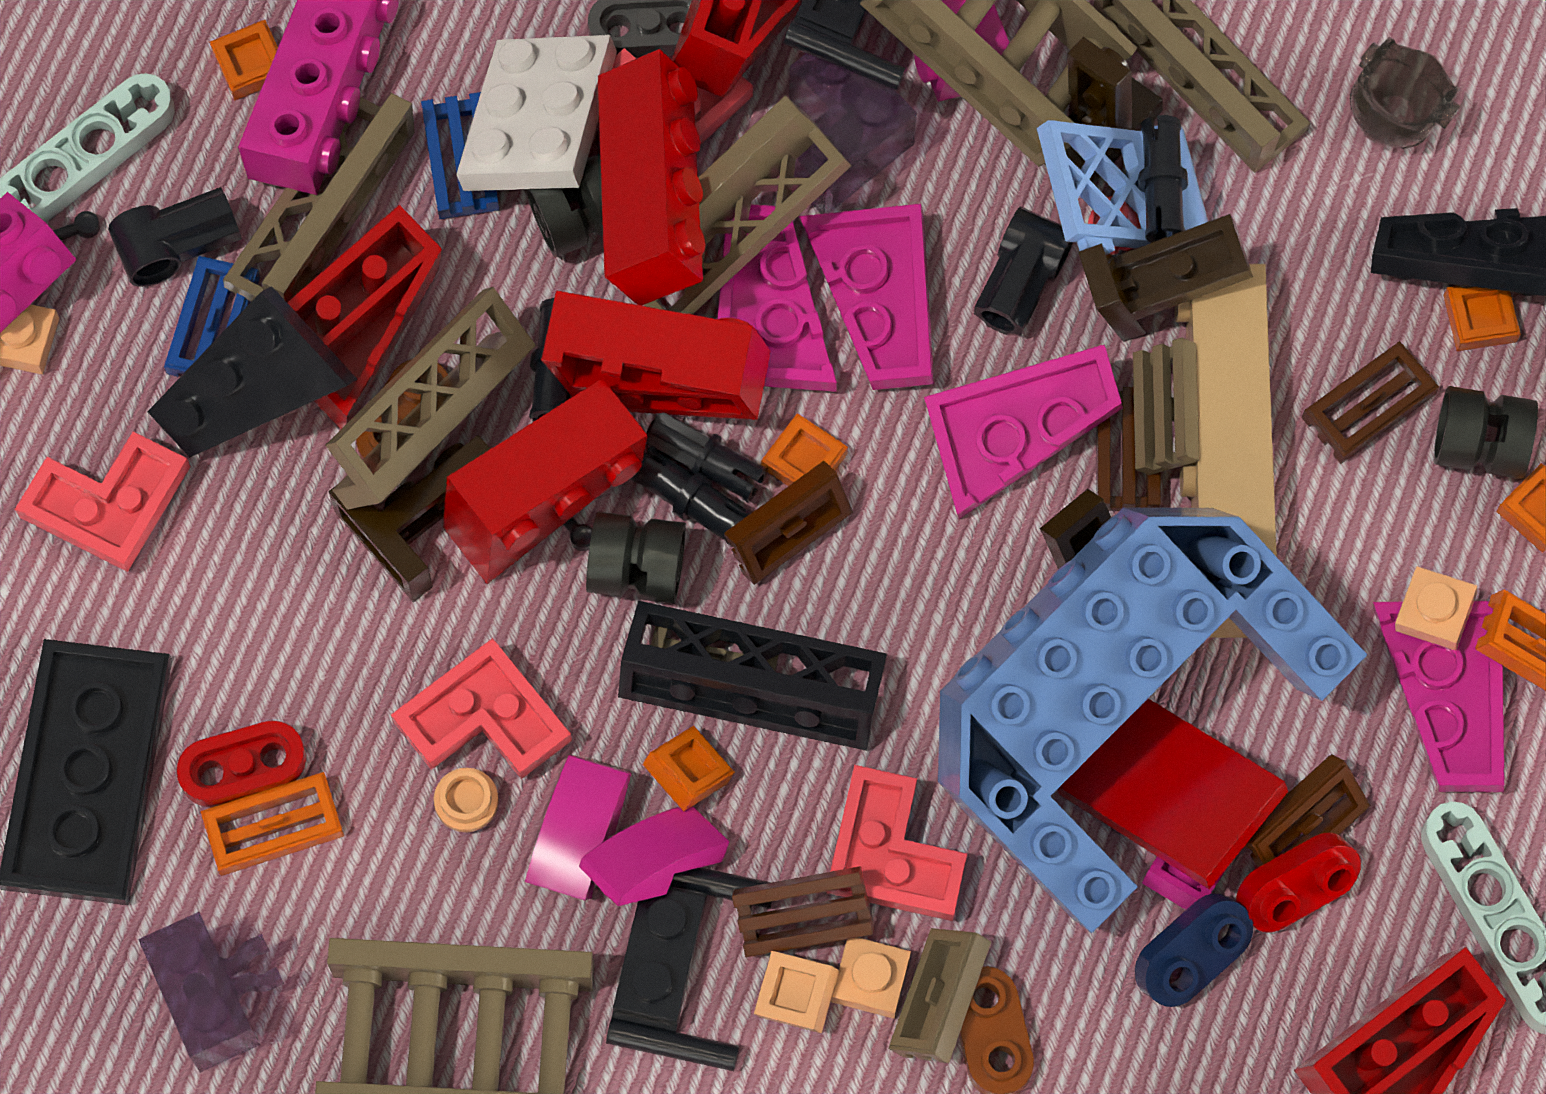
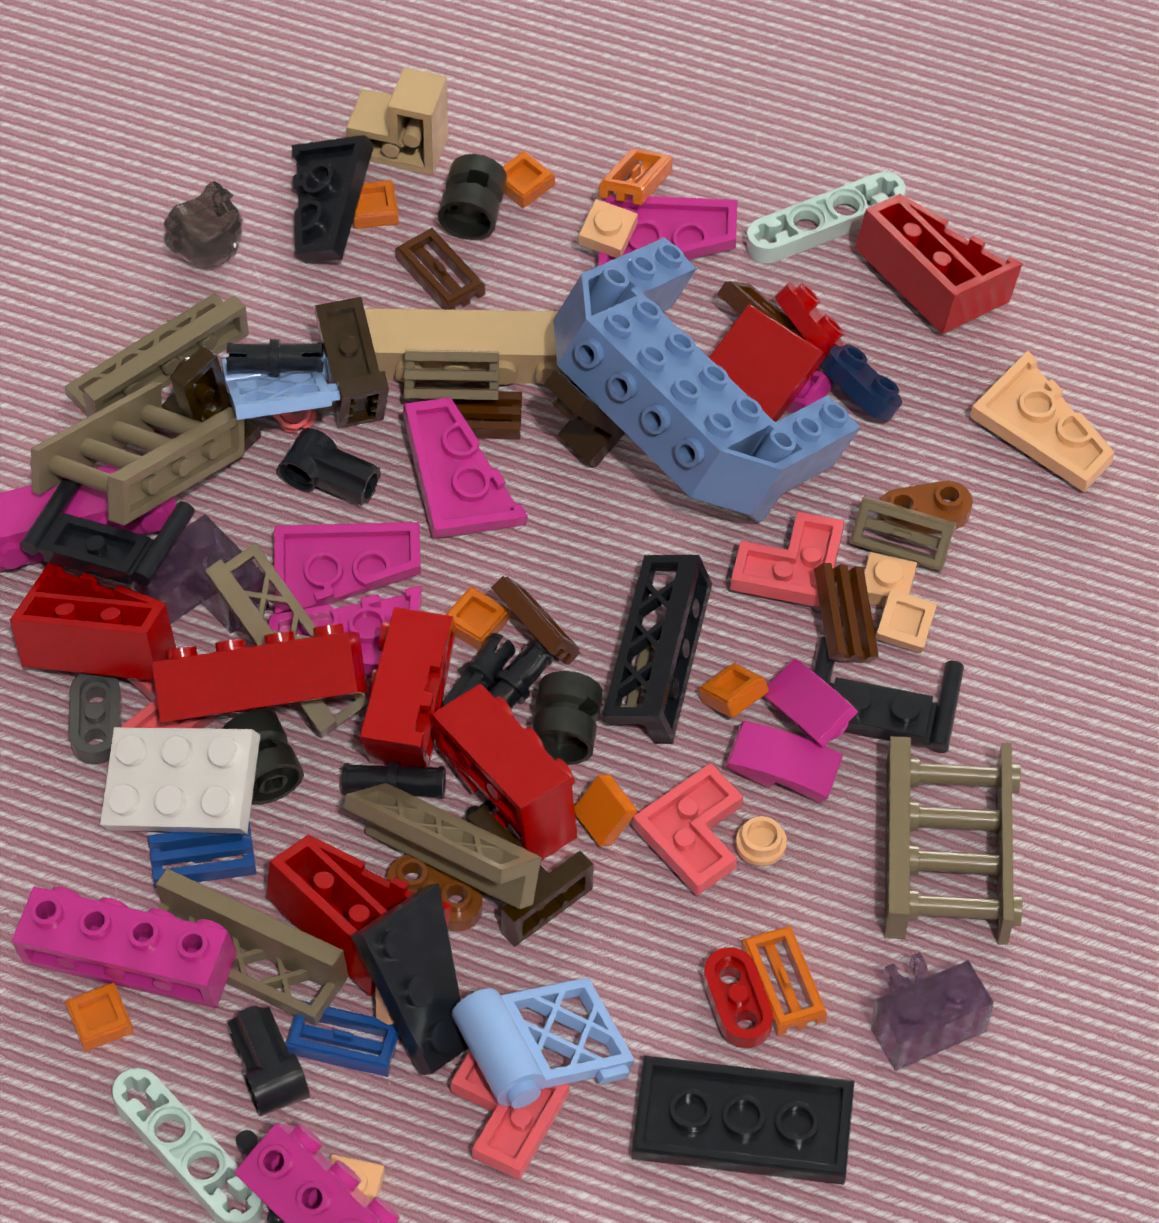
camera: 90 degrees left, 15 degrees down
(156, 483) = (508, 1047): none -> light blue piece
(505, 607) = (604, 810): none -> orange tile

